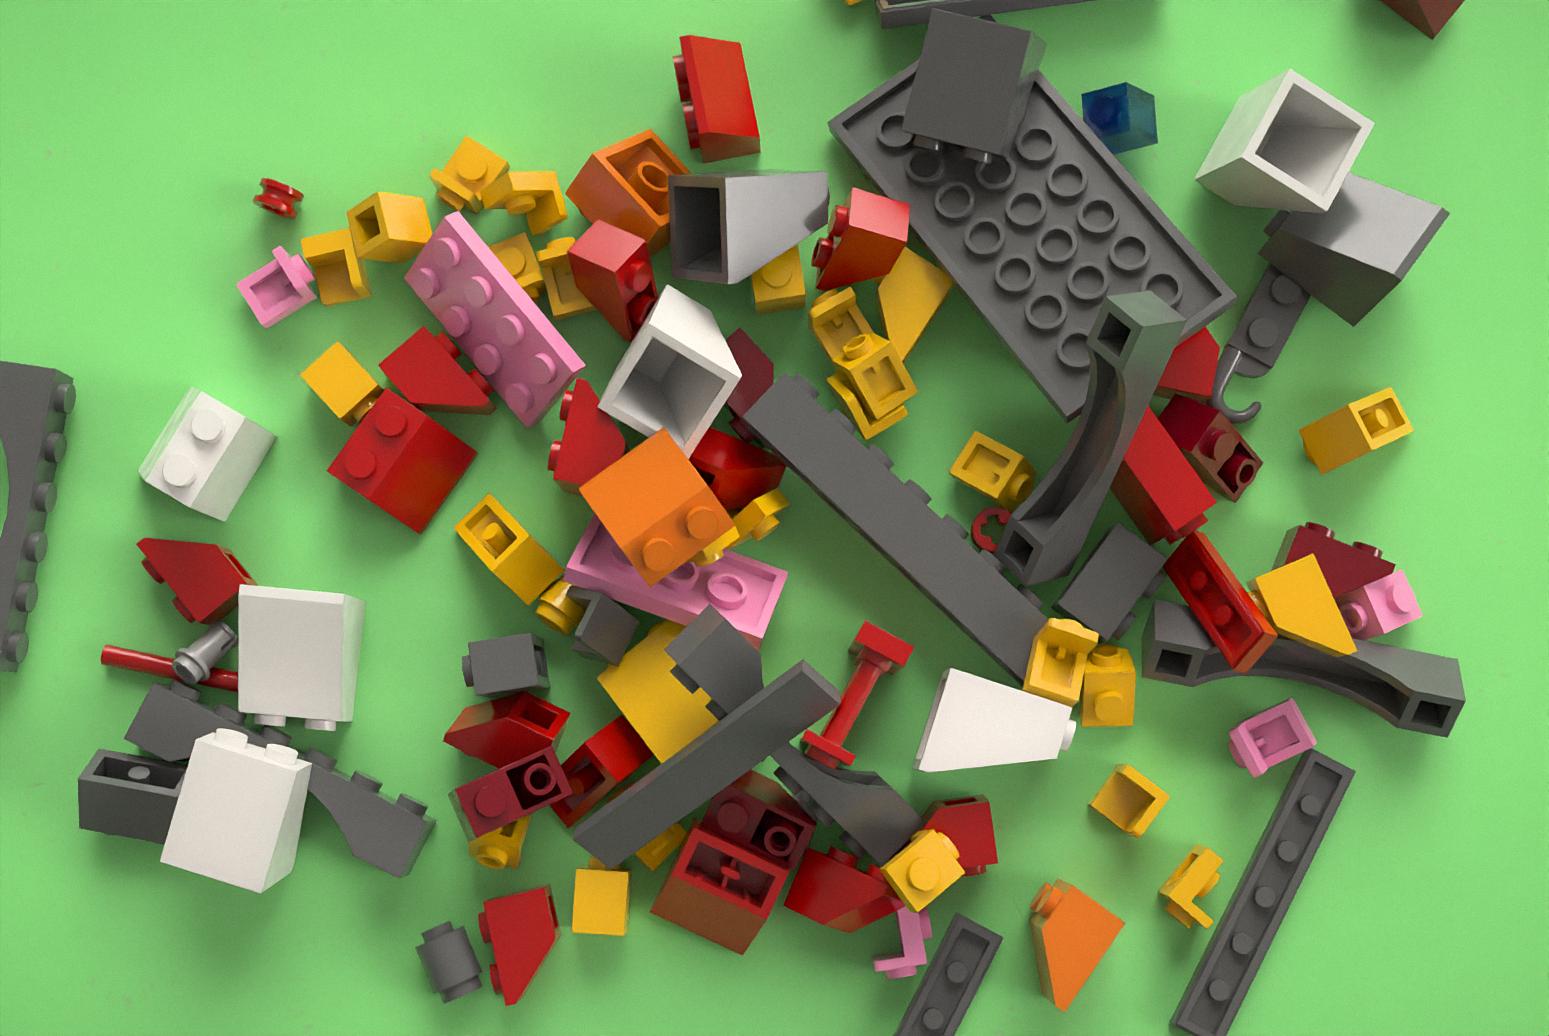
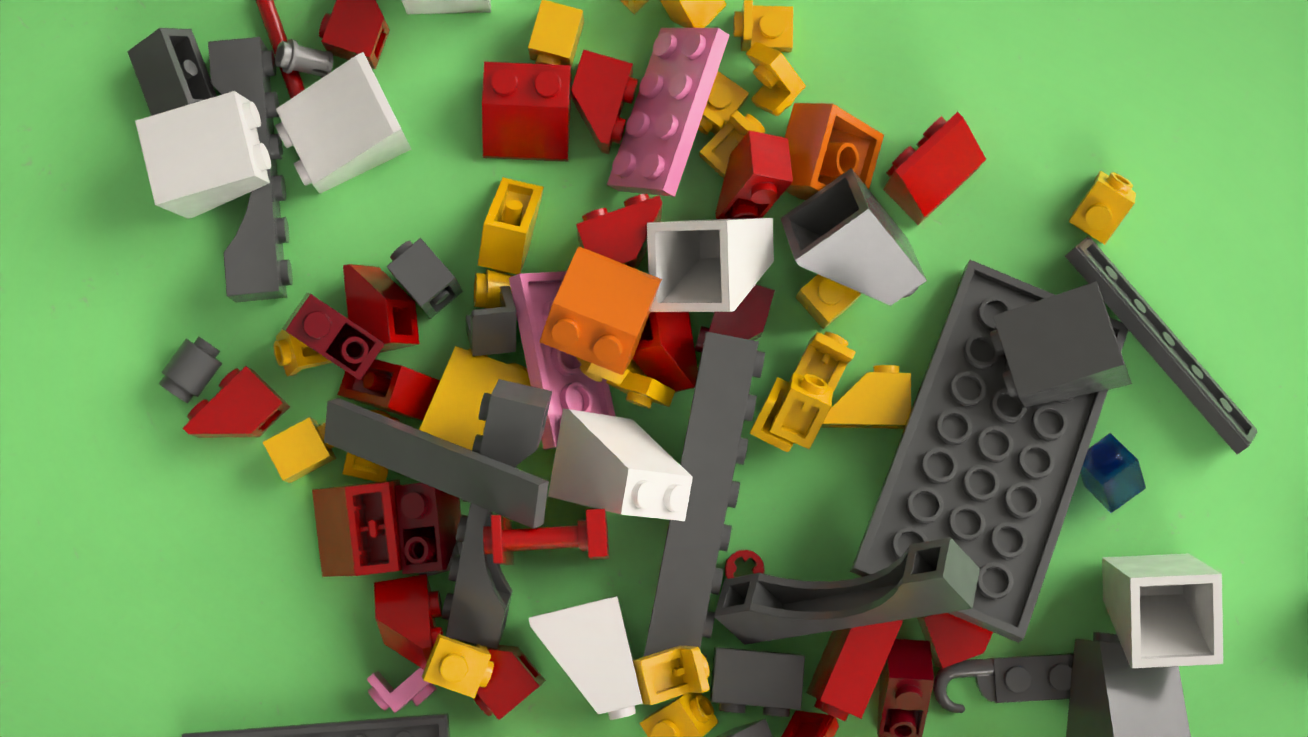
camera: 50 degrees right, 0 degrees up
(823, 589) = (617, 468): none -> white slope
(861, 240) = (894, 339): red slope -> none
(994, 471) = (787, 542): yellow bracket -> none

